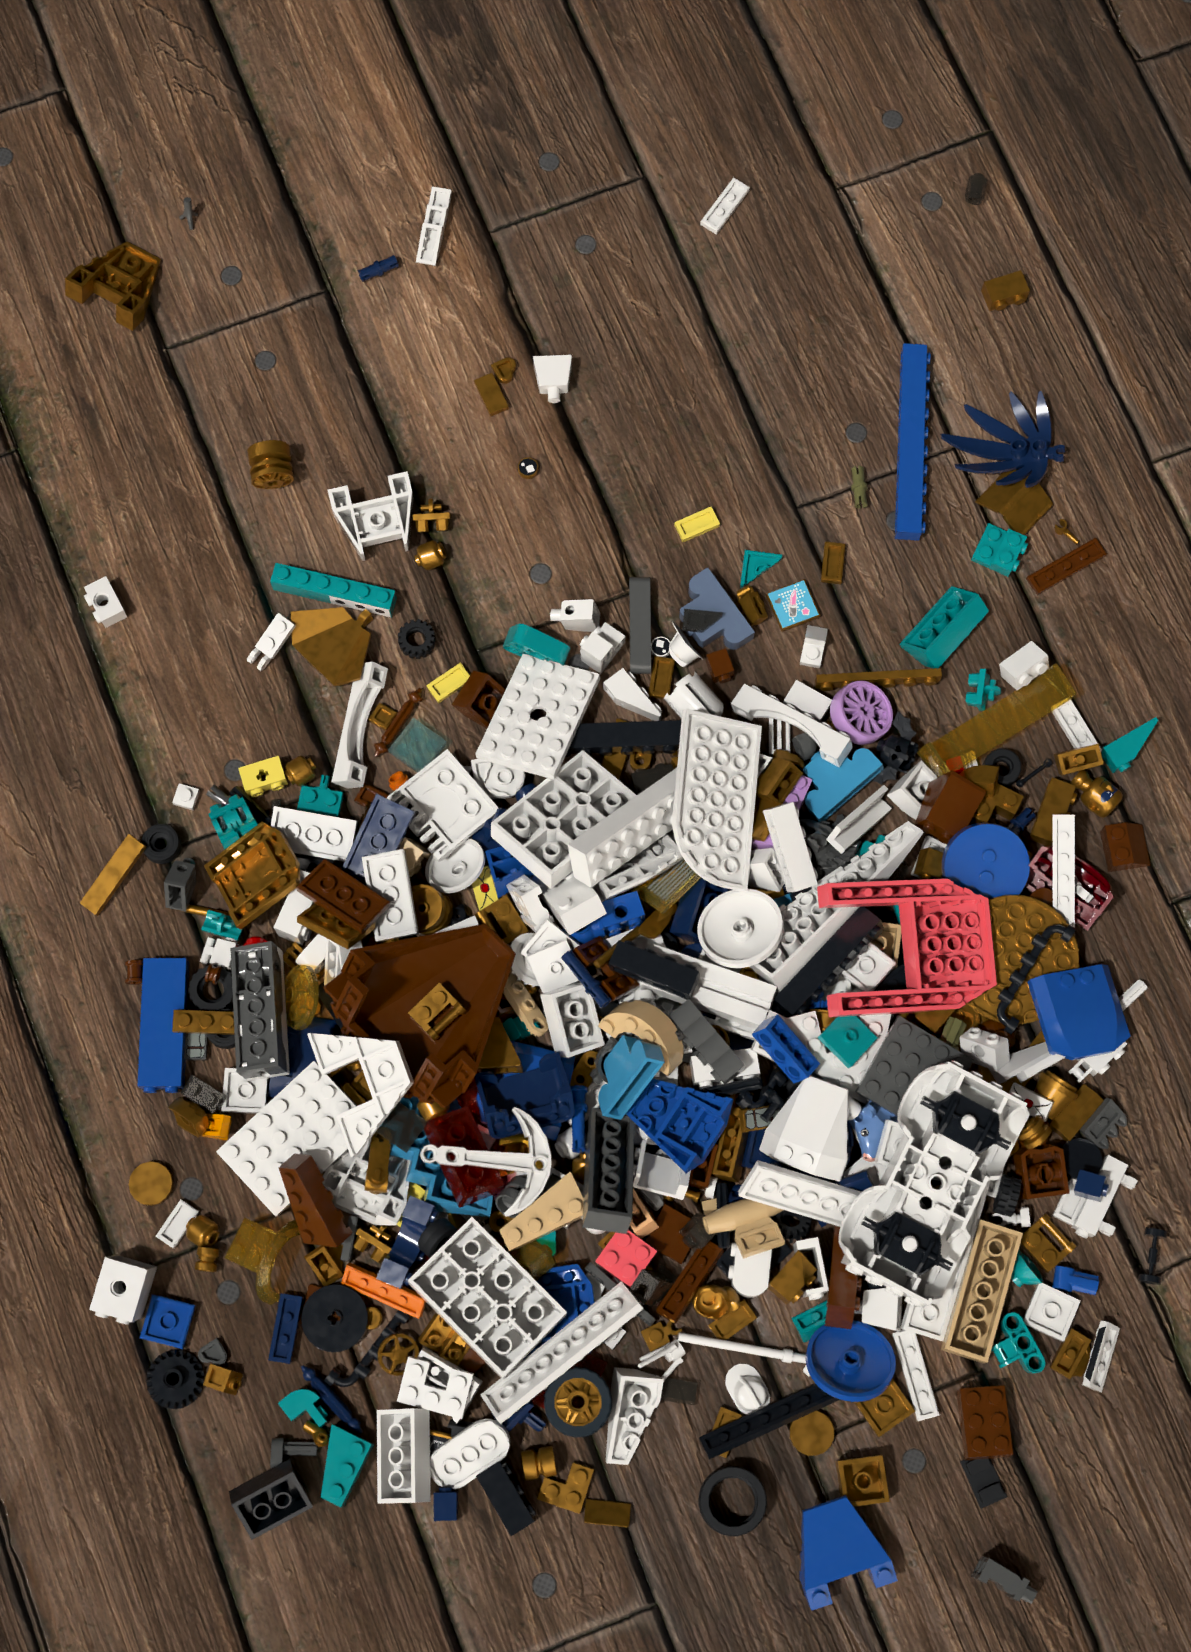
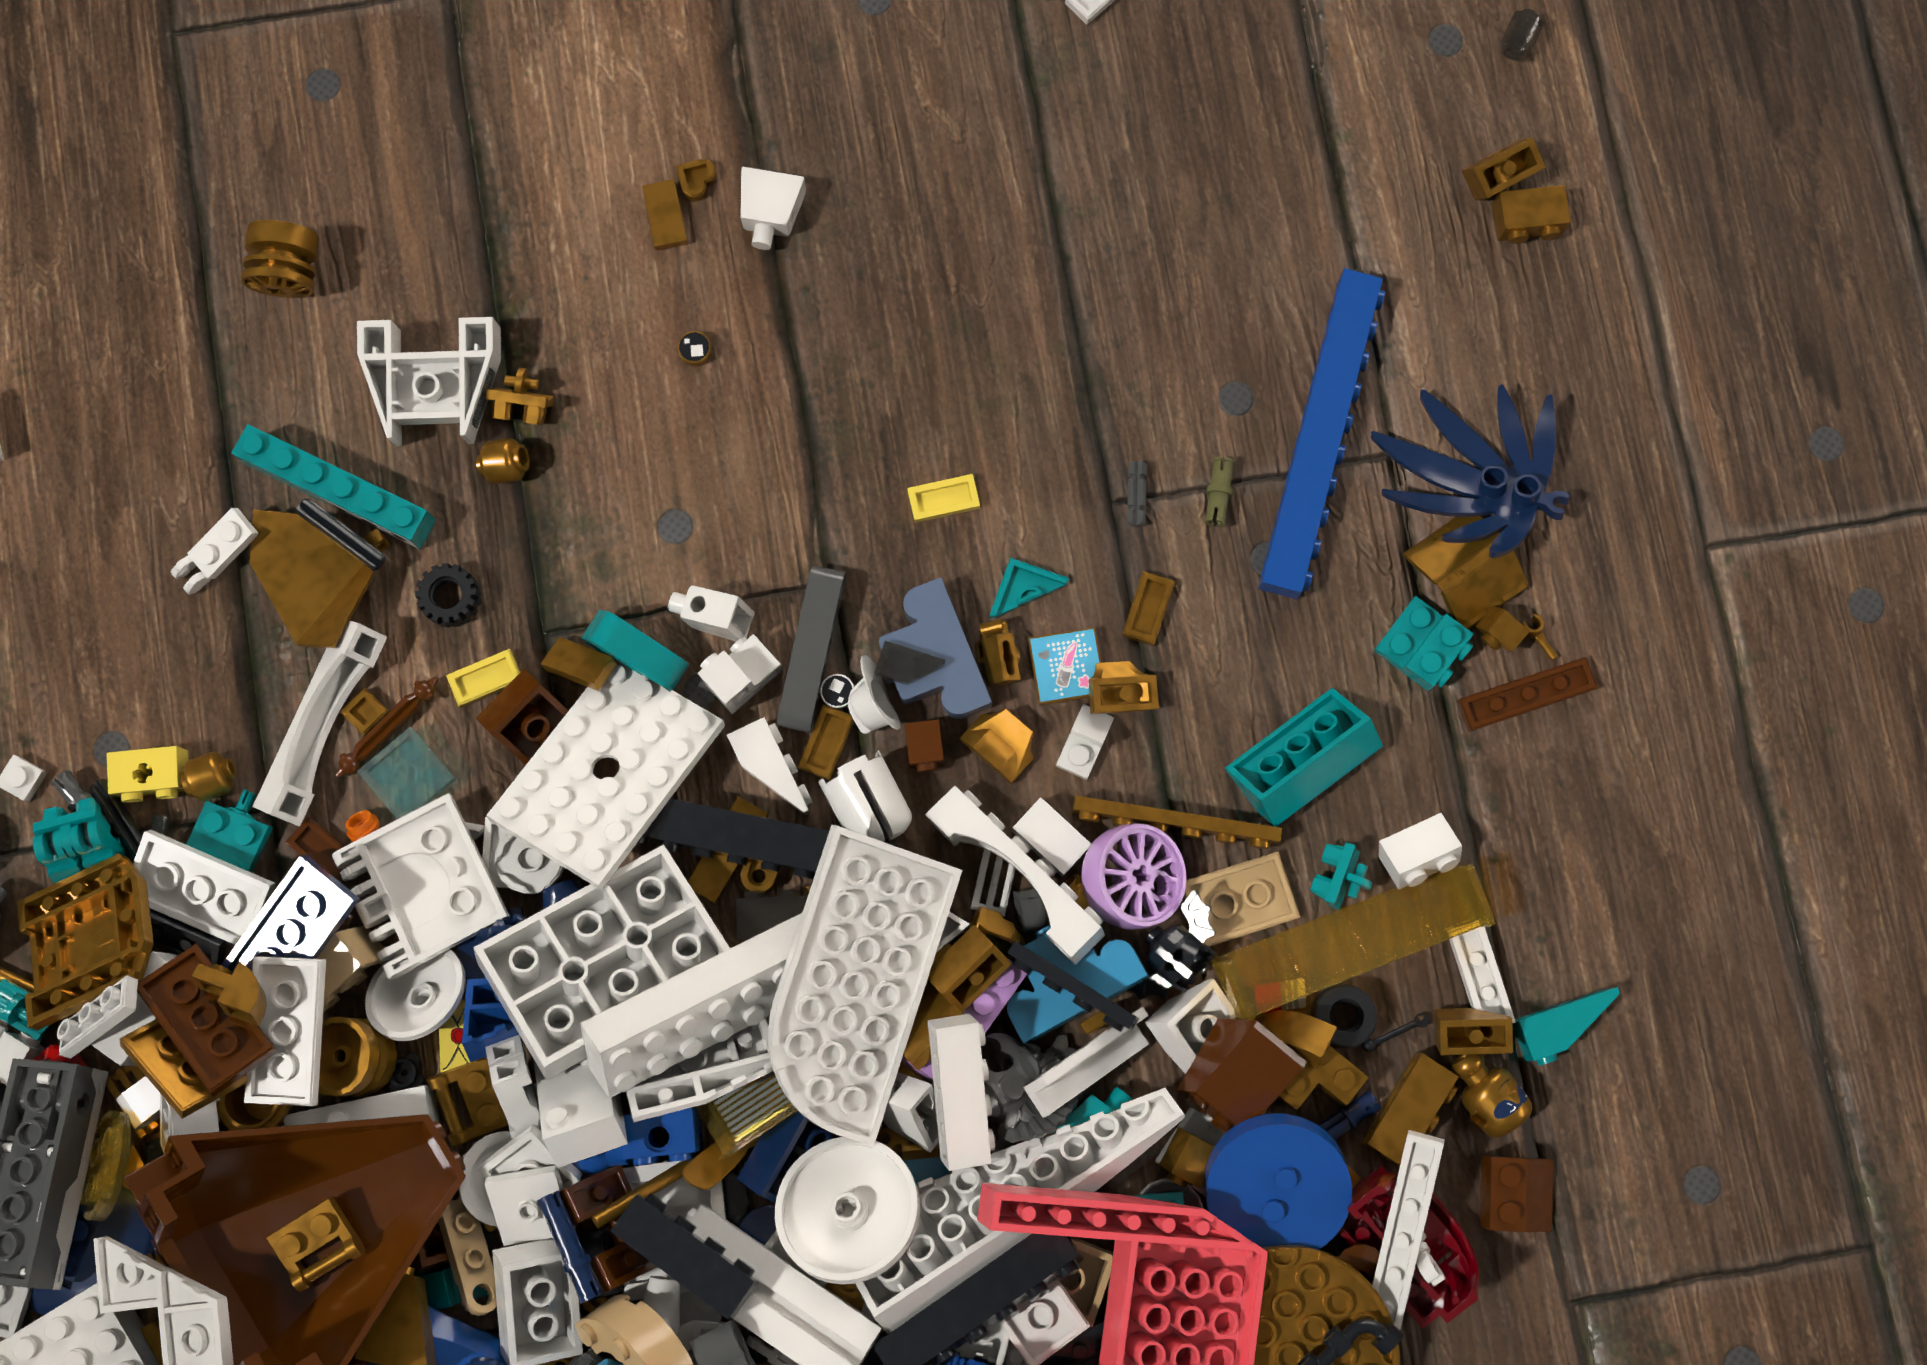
camera: 10 degrees right, 5 degrees up
(279, 909) = (97, 1017): none -> white tile
(346, 615) = (340, 534): none -> black axle
(361, 874) = (237, 991): none -> pearl gold brick
(505, 661) = (579, 663): none -> pearl gold tile
(764, 656) = (1001, 743): none -> pearl gold slope
(810, 498) = (1136, 494): none -> dark grey axle
(829, 611) = (1121, 689): none -> pearl gold slope
(849, 781) = (1084, 995): none -> black plate
(858, 799) = (1092, 1023): none -> pearl gold tile
(930, 714) = (1246, 897): none -> tan tile
(983, 268) = (1503, 168): none -> pearl gold brick
(1042, 531) = (1501, 630): none -> pearl gold plate

